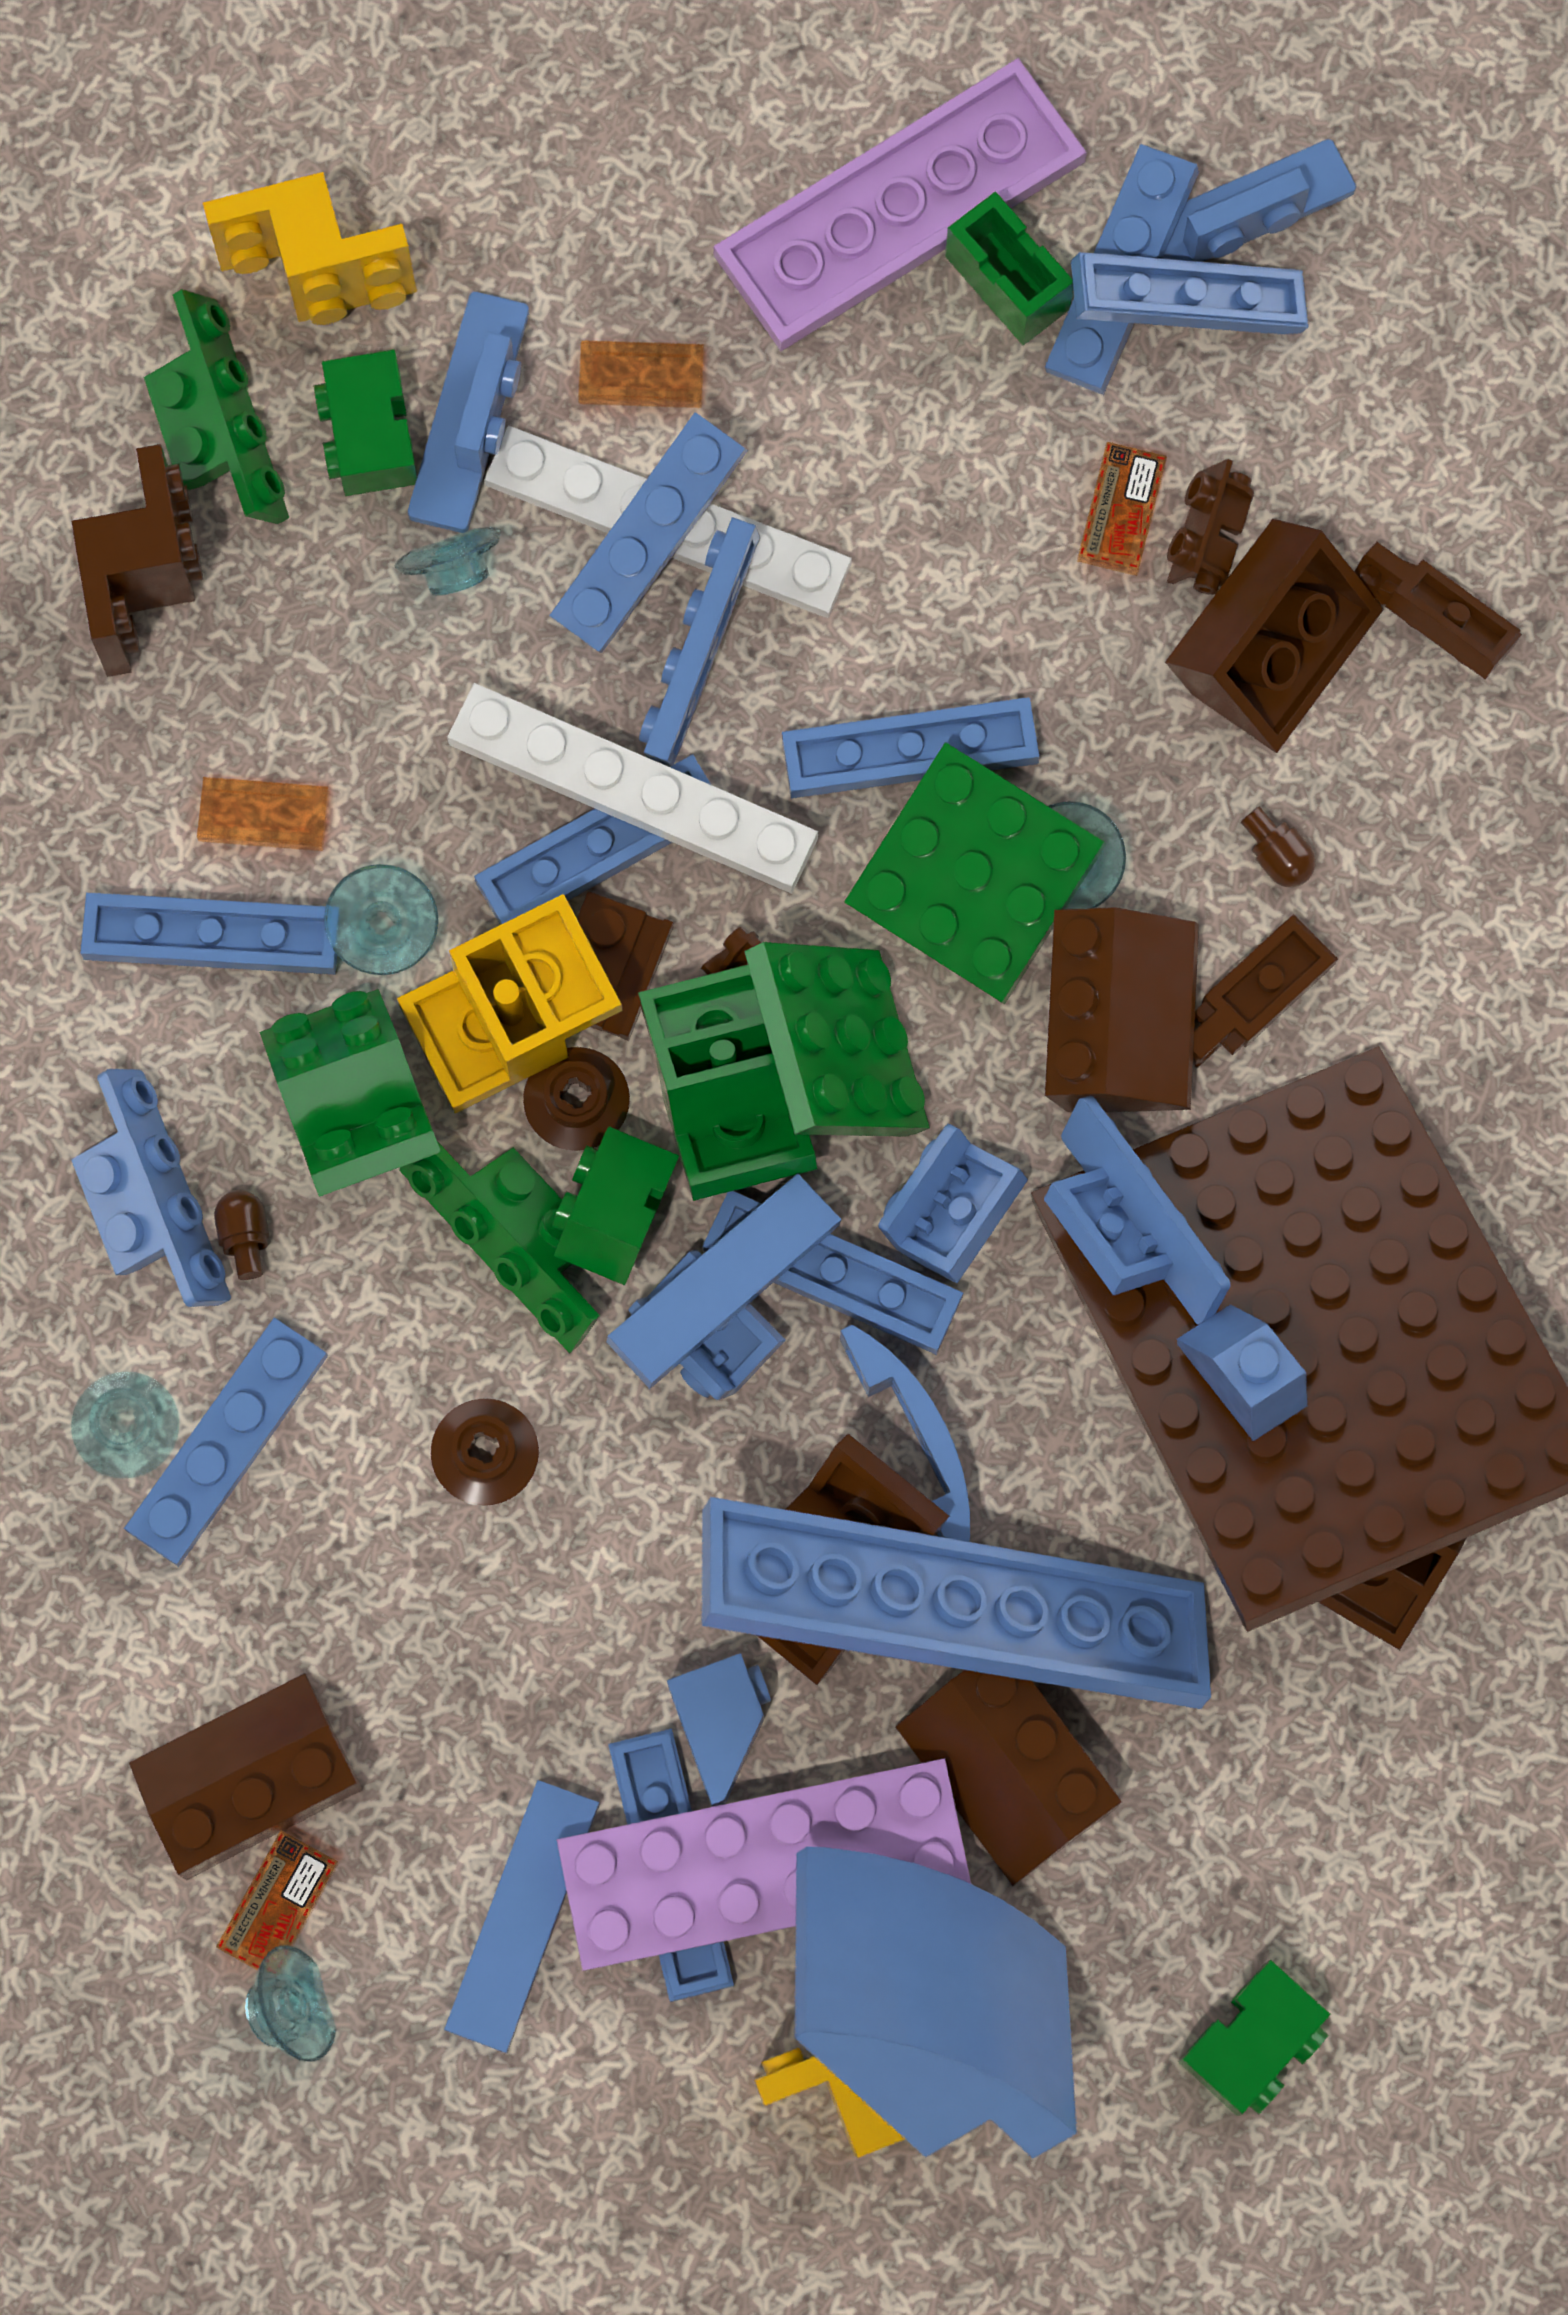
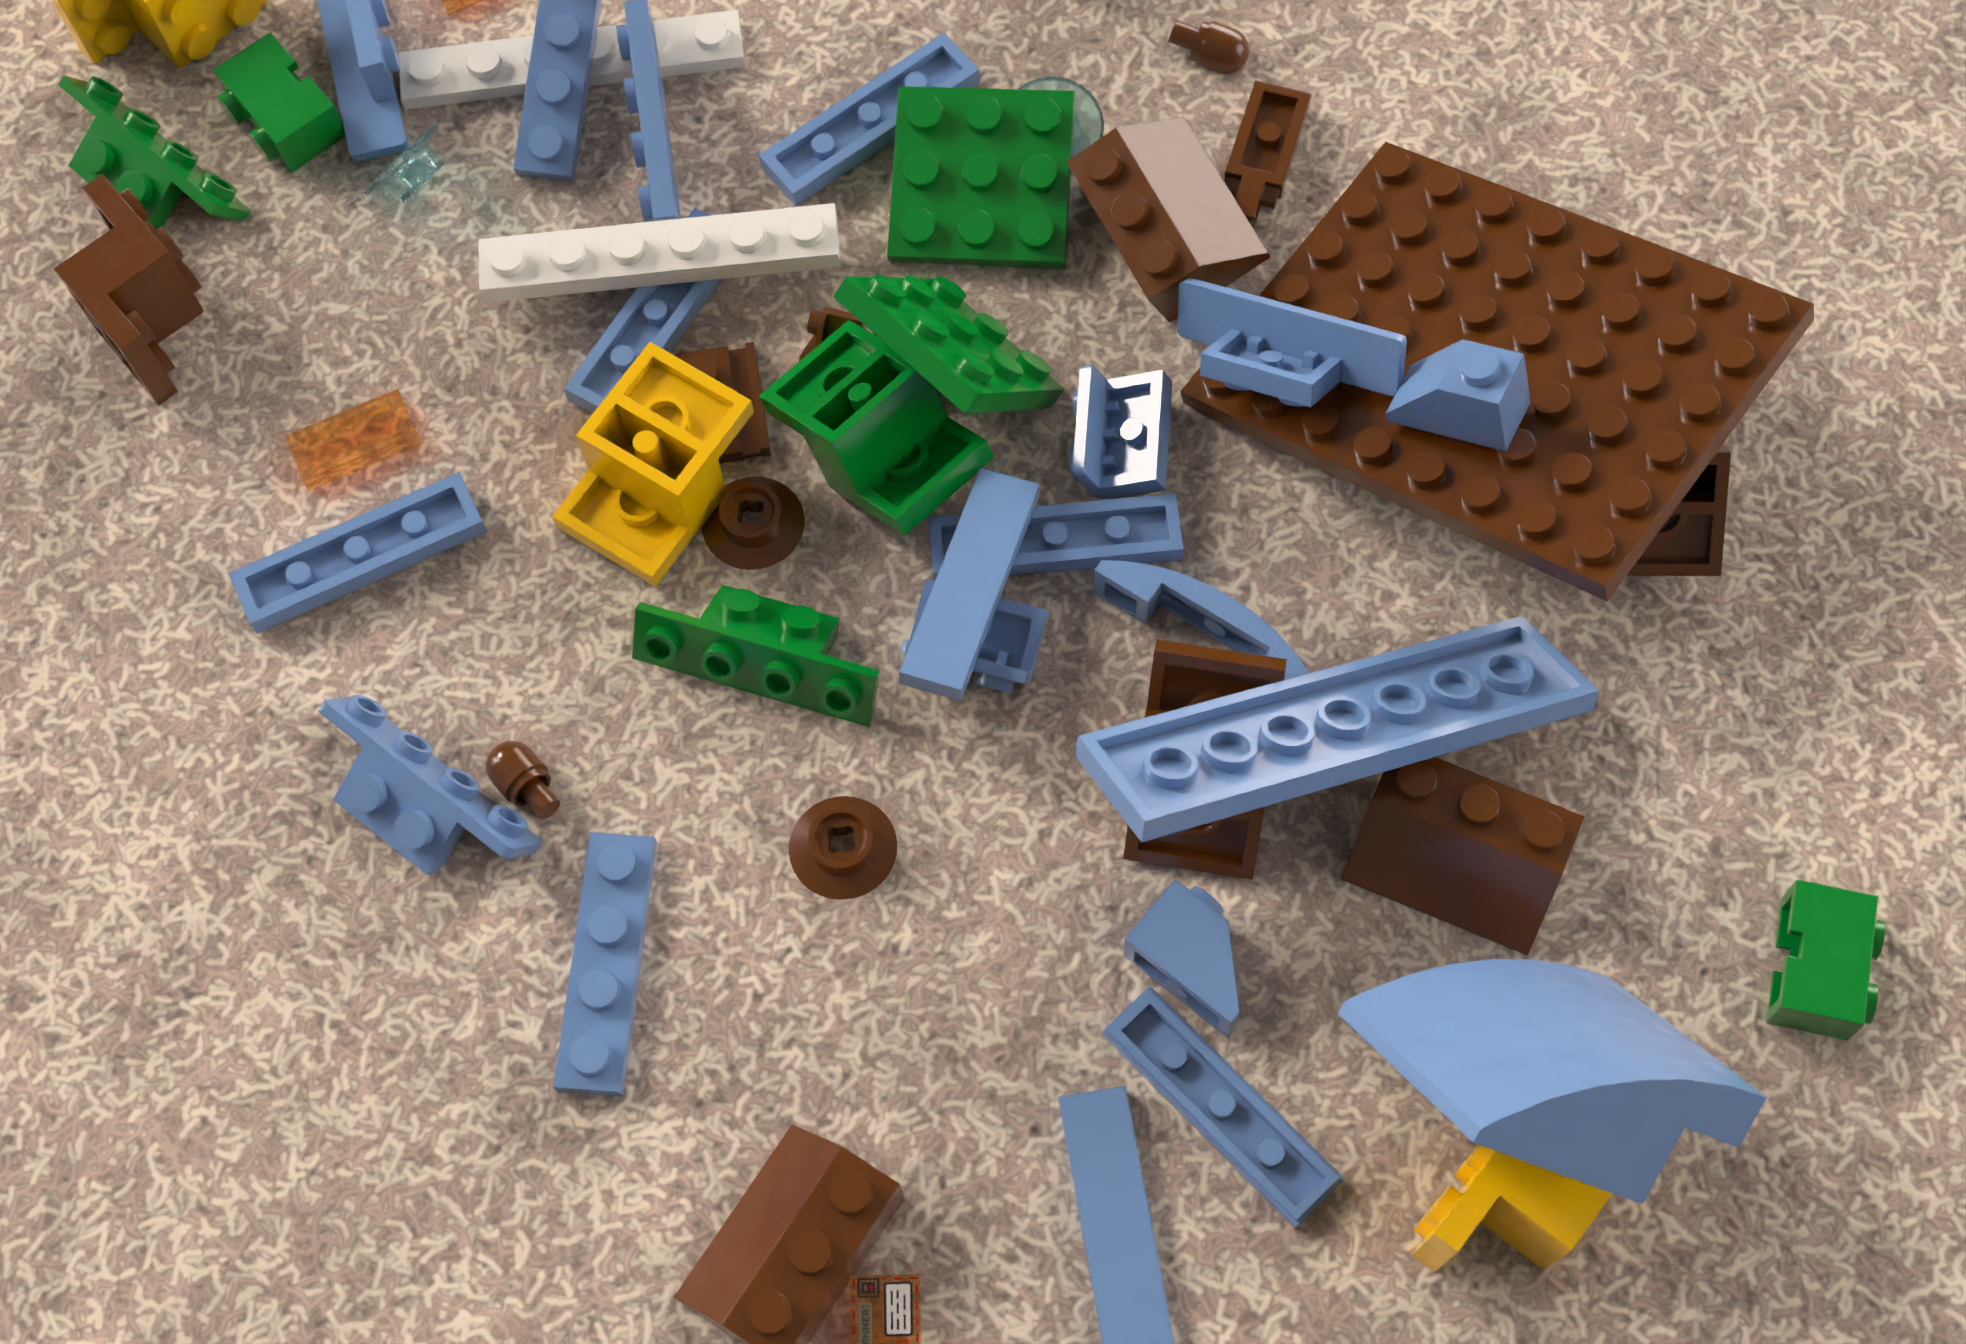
camera: 25 degrees left, 10 degrees down
(129, 1452) = (523, 1018): clear light blue piece -> none
(349, 1091) = (552, 605): green bracket -> none
(357, 901) = (493, 442): clear light blue piece -> none
(614, 1206) = (839, 575): green brick -> none
(734, 1864) = (1284, 1065): lavender plate -> none

